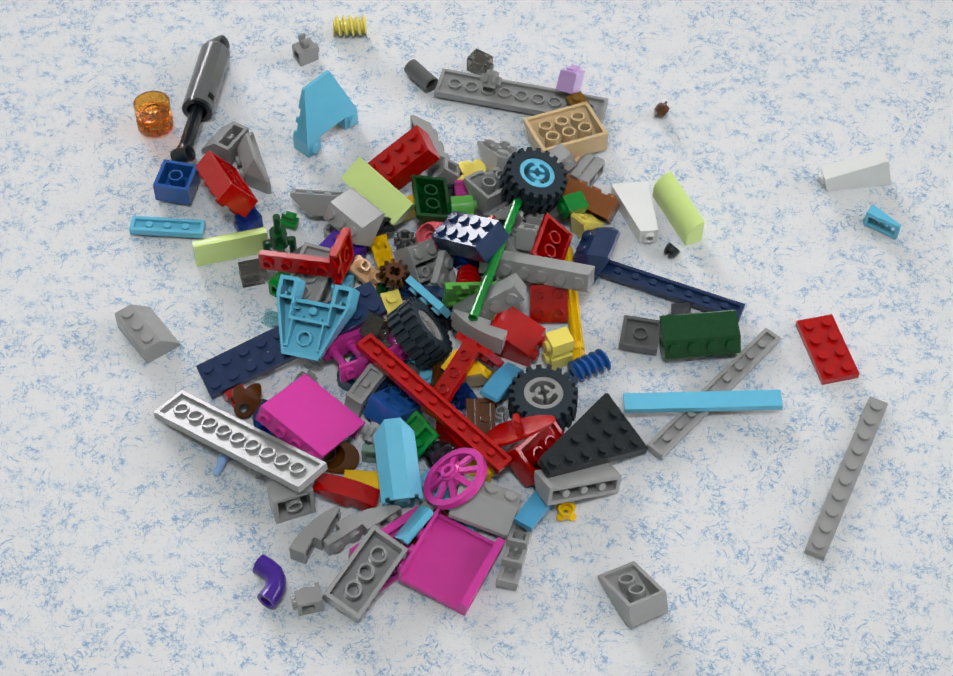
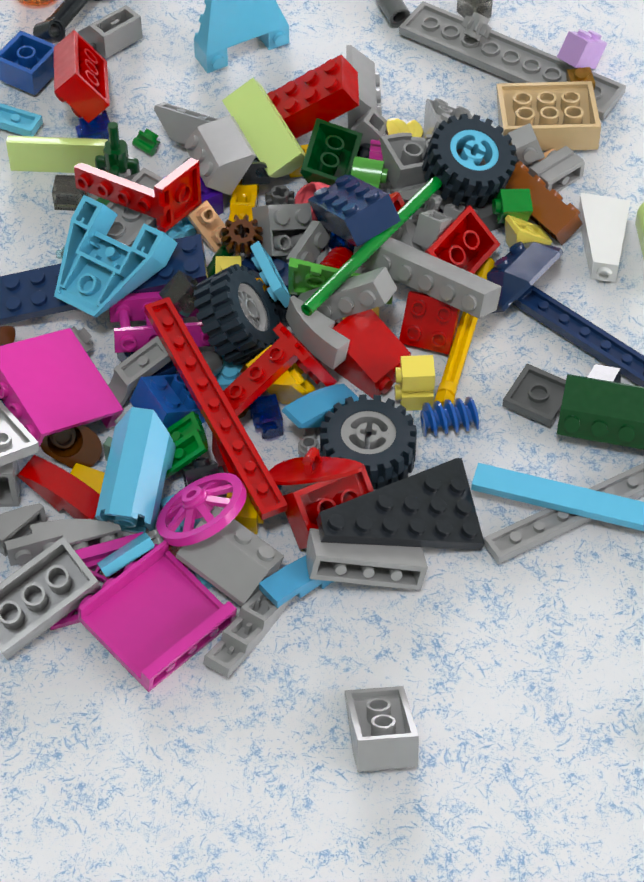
camera: 20 degrees right, 0 degrees up
(252, 164) = (130, 61): light grey wedge -> none
(481, 413) = (276, 440): reddish brown plate -> none
(570, 508) = (341, 589): yellow plate -> none
(670, 248) = (628, 298): black hinge -> none

